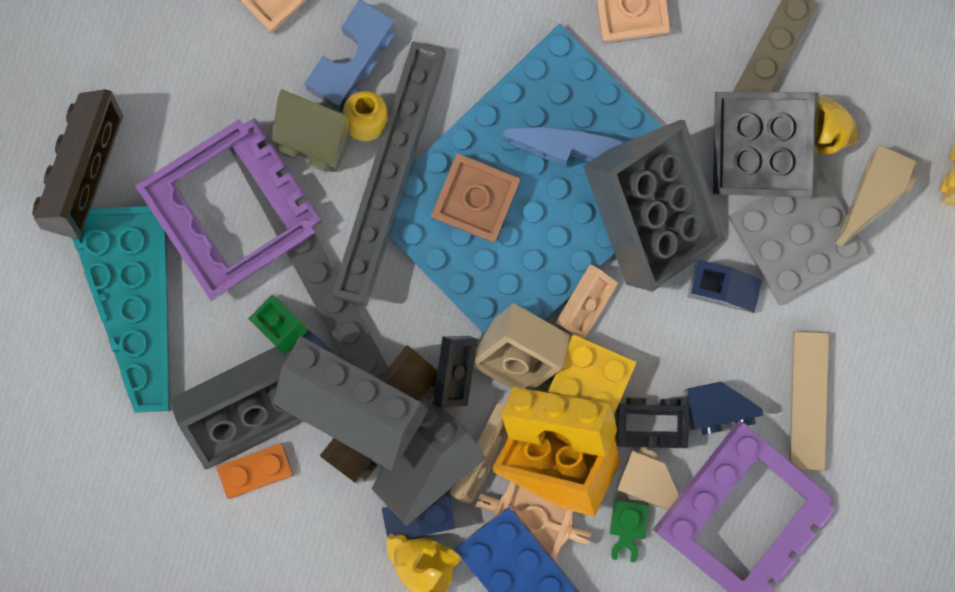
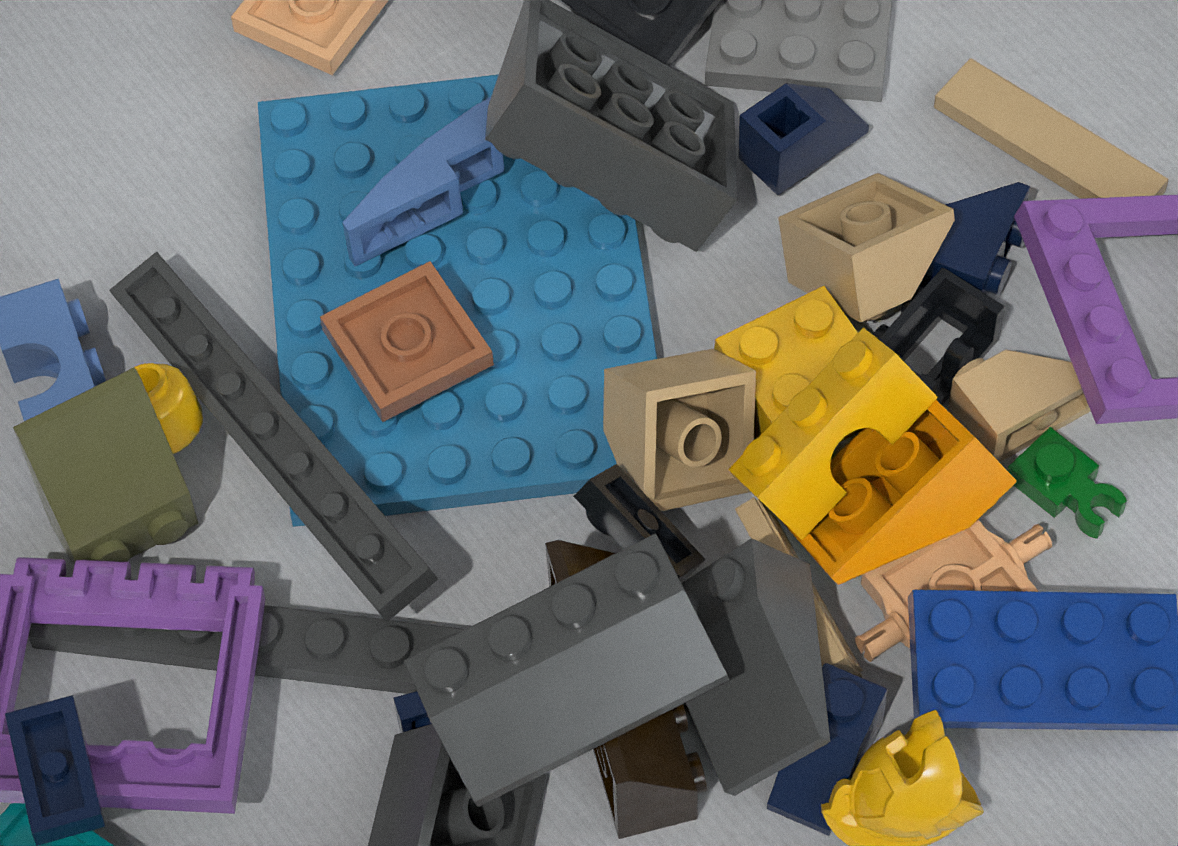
camera: 50 degrees left, 25 degrees down
(166, 222) = (54, 770): none -> dark blue plate
(278, 324) = (355, 737): green plate -> none
(586, 302) = (675, 304): light nougat plate -> none
(675, 363) = (864, 244): none -> tan slope

